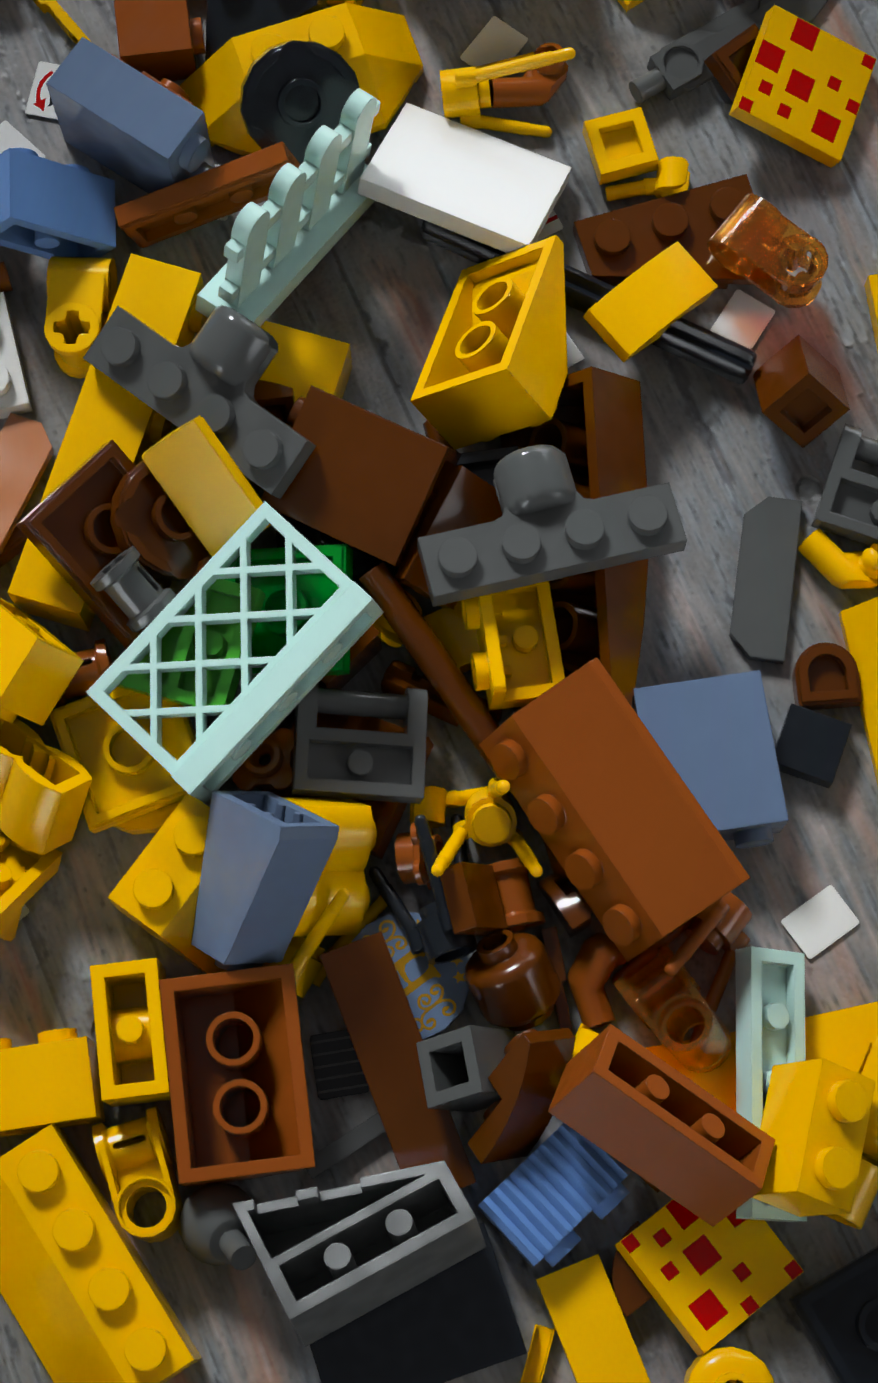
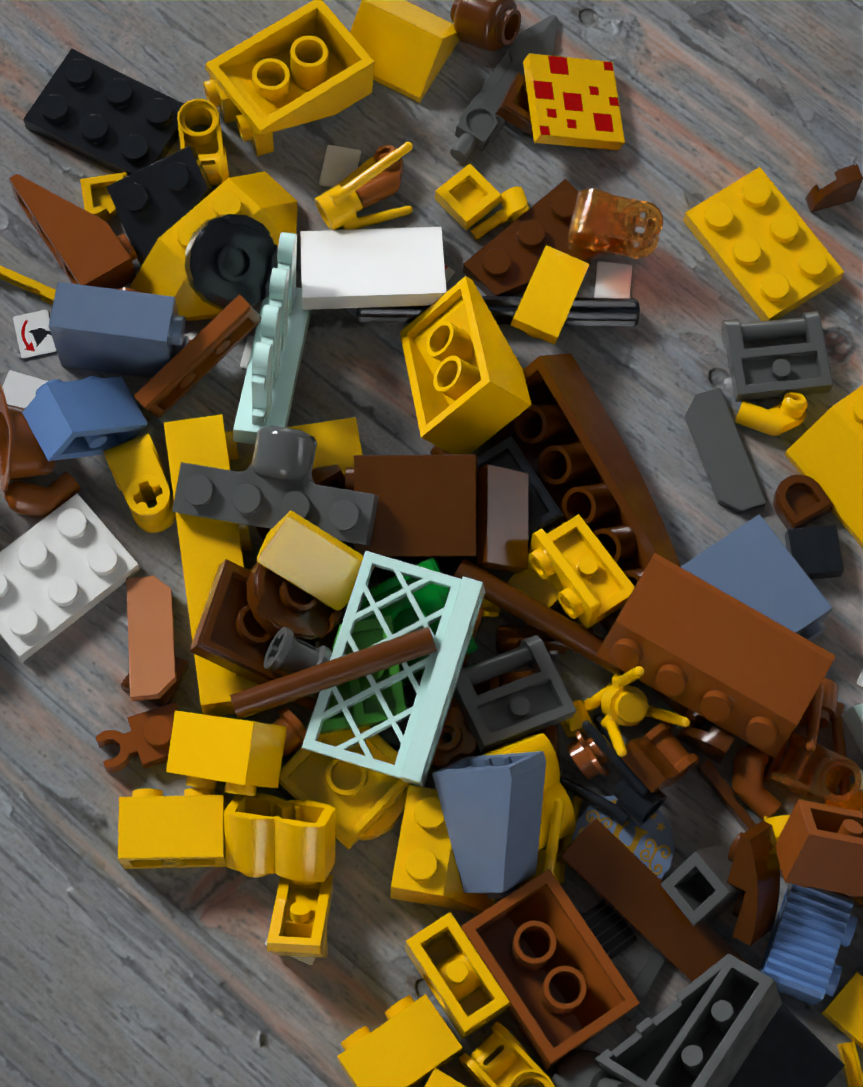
camera: 30 degrees left, 5 degrees down
(159, 624) = (333, 673): none -> reddish brown piece
(512, 980) = (701, 809): reddish brown head -> none
(547, 531) = (570, 483): dark grey plate -> none
(800, 391) = (681, 312): reddish brown panel -> none

